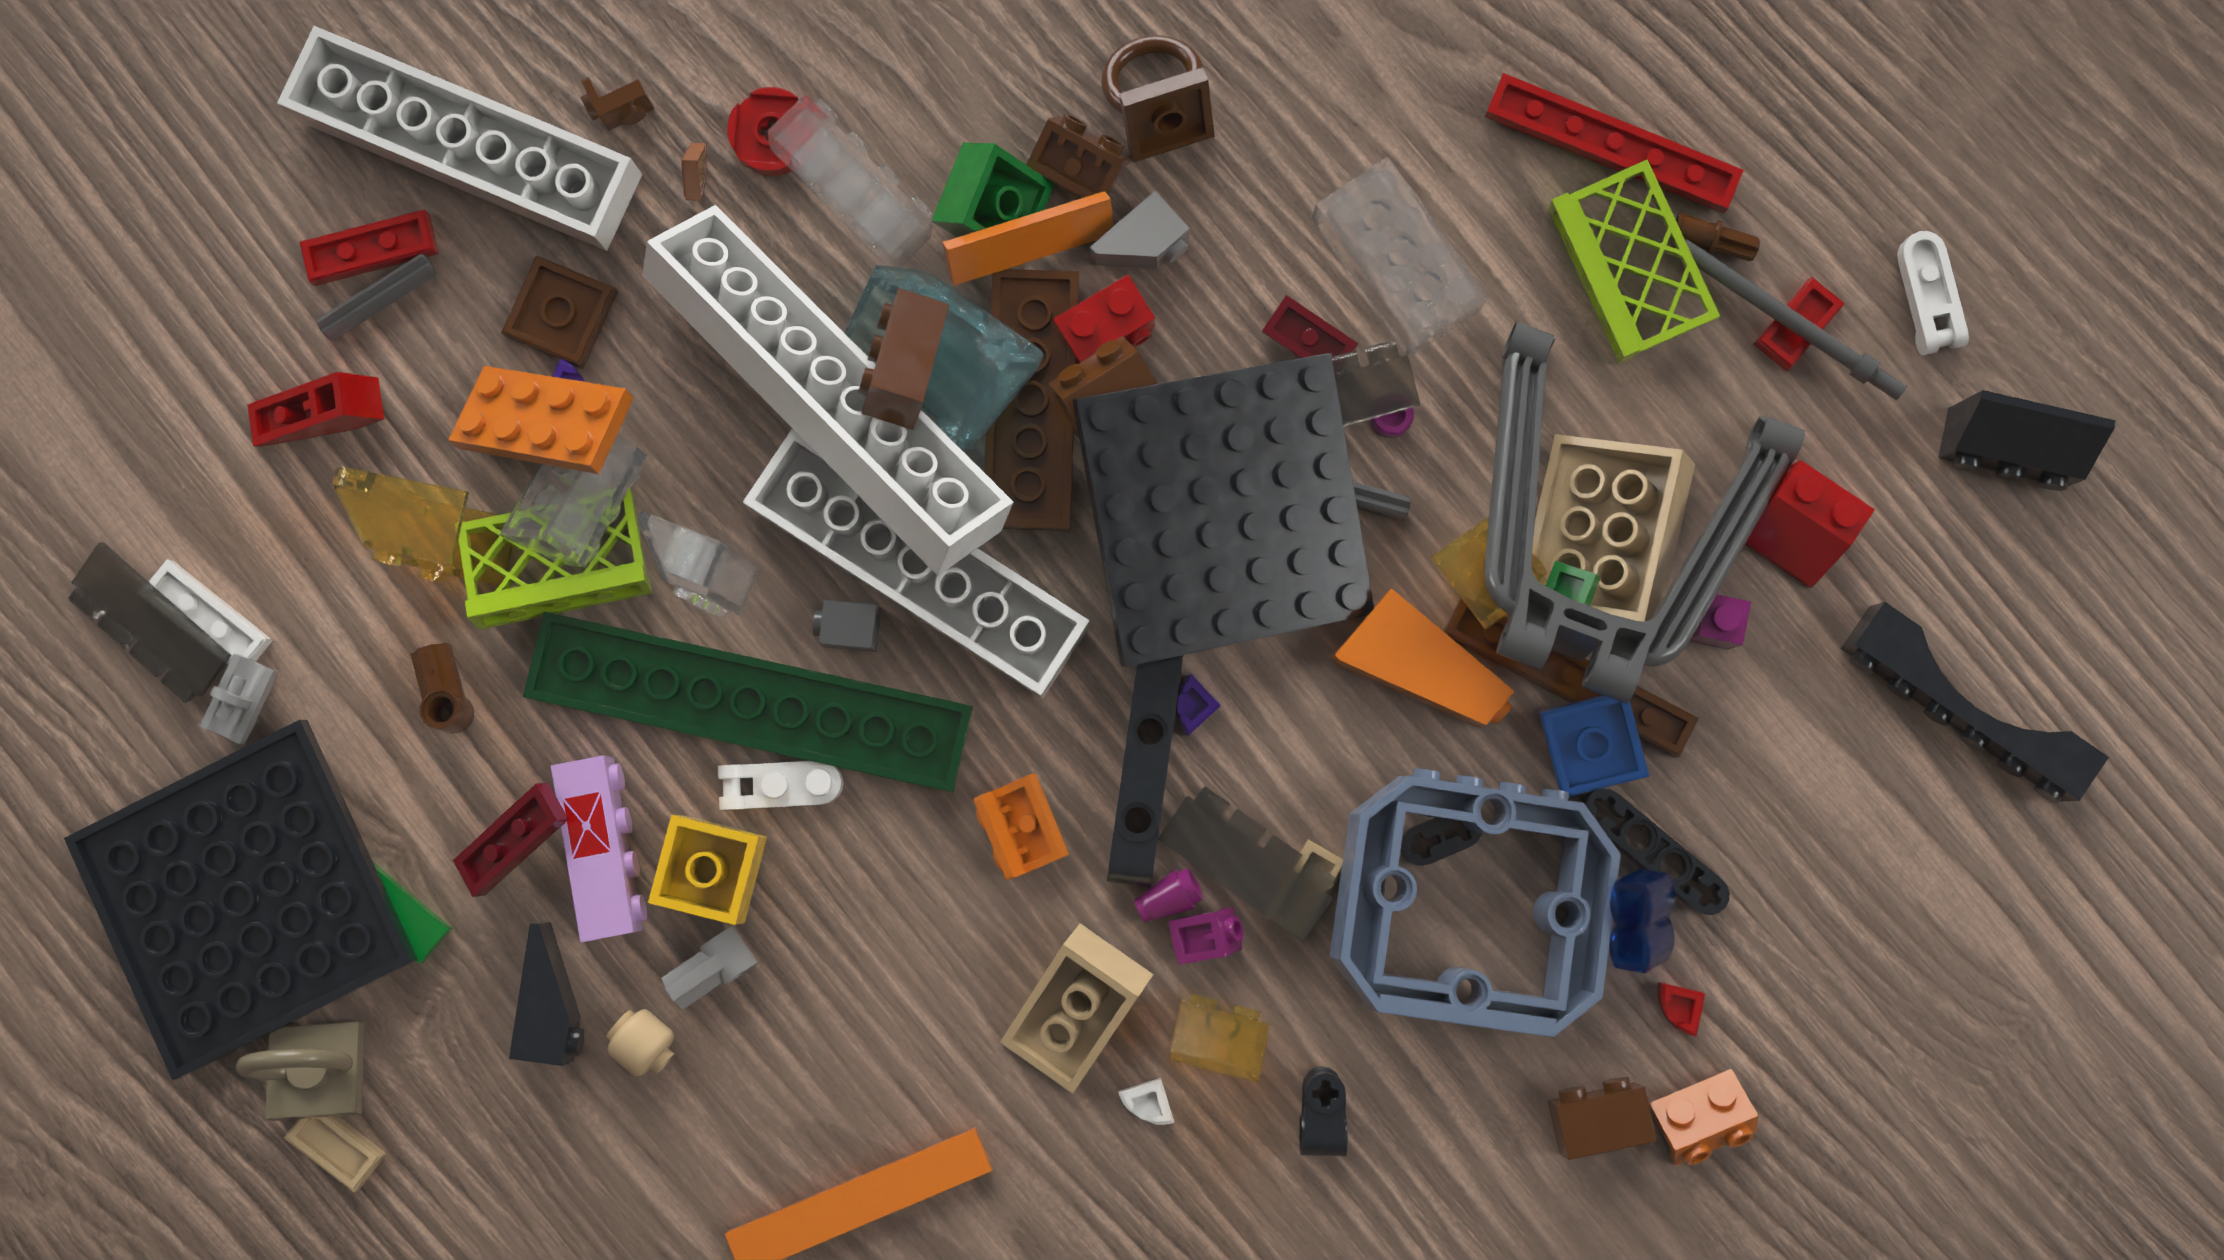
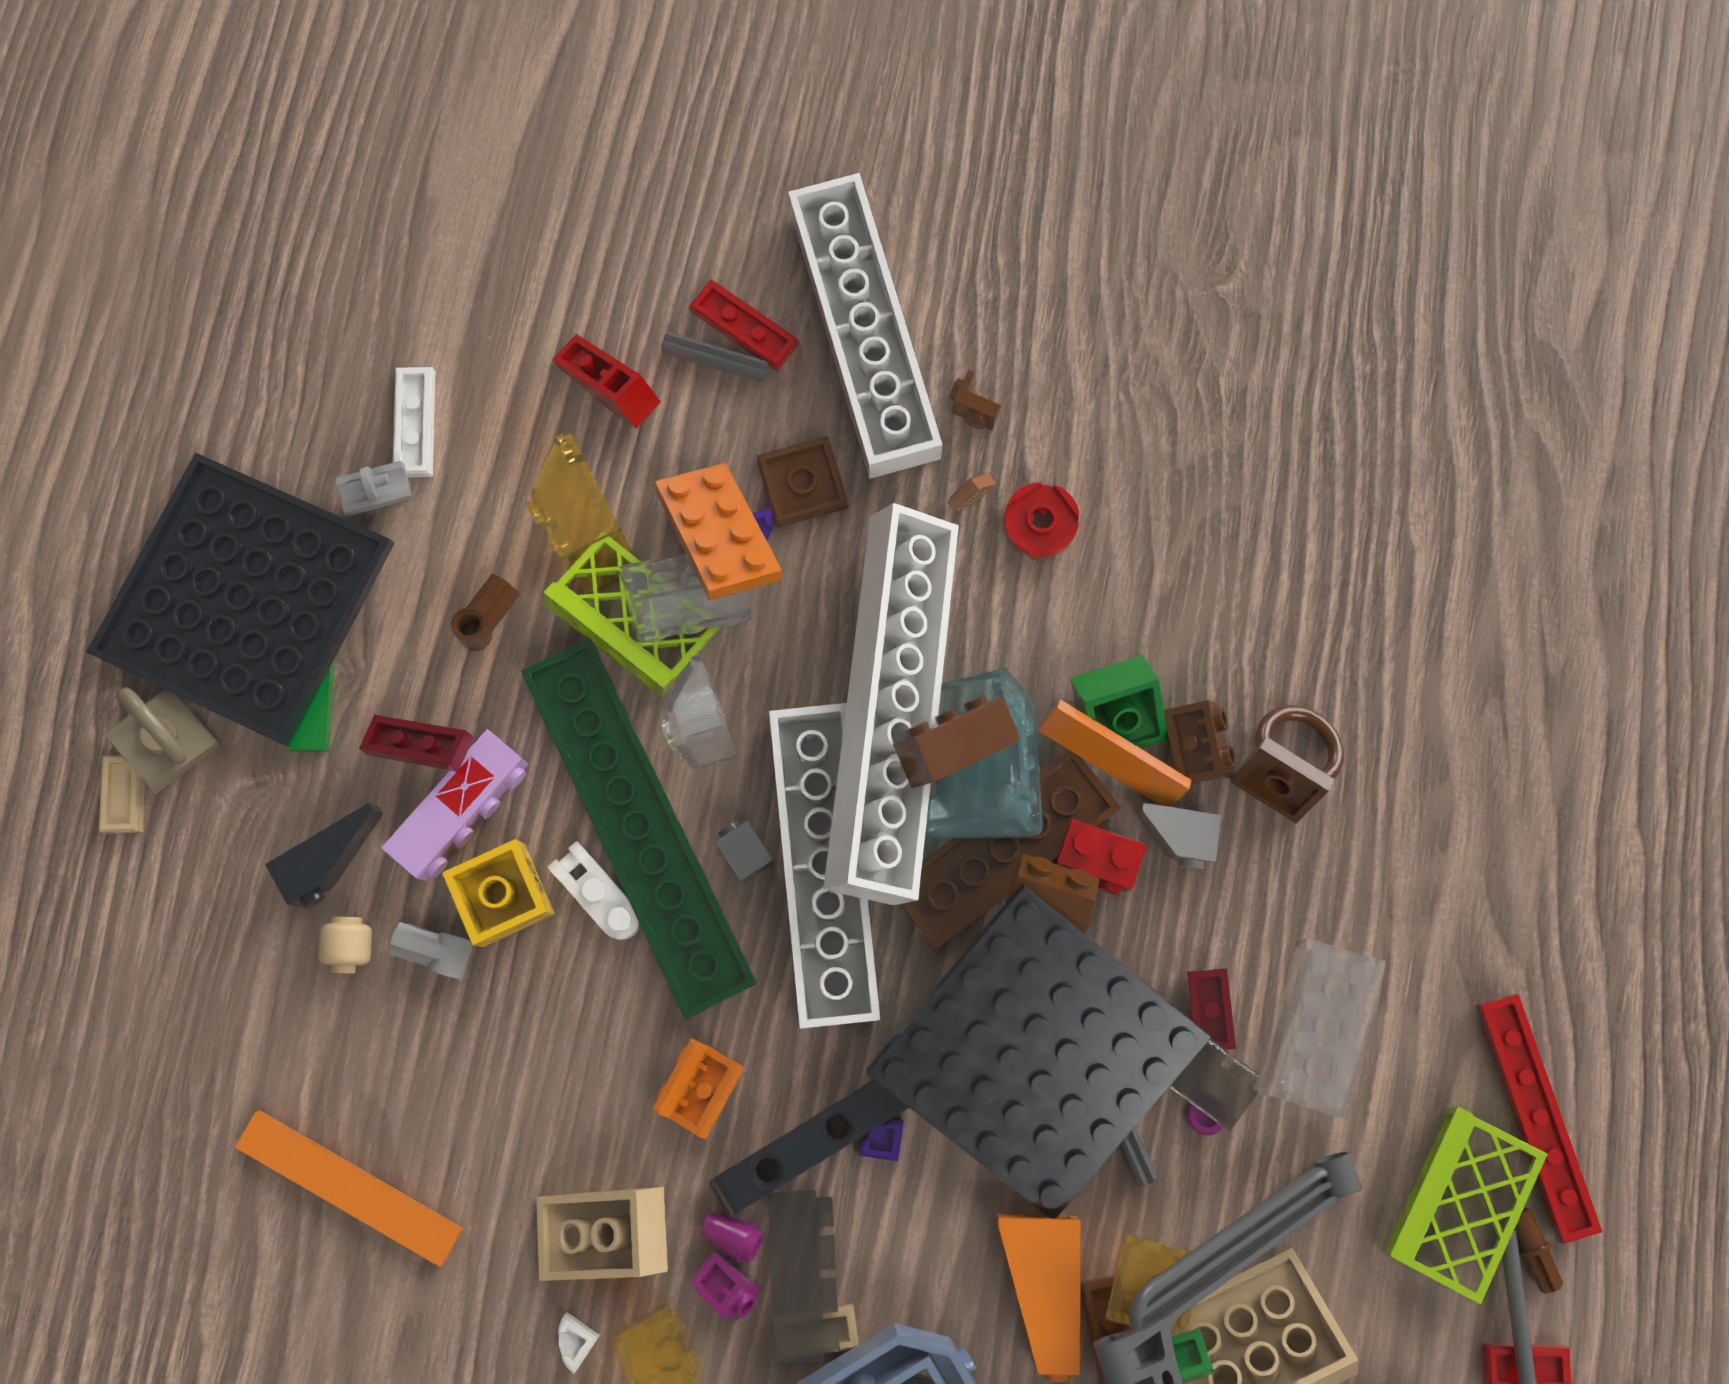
camera: 50 degrees right, 5 degrees down
(144, 615) = (383, 383): clear smoke windscreen -> none
(850, 182) = (1048, 604): clear brick -> none

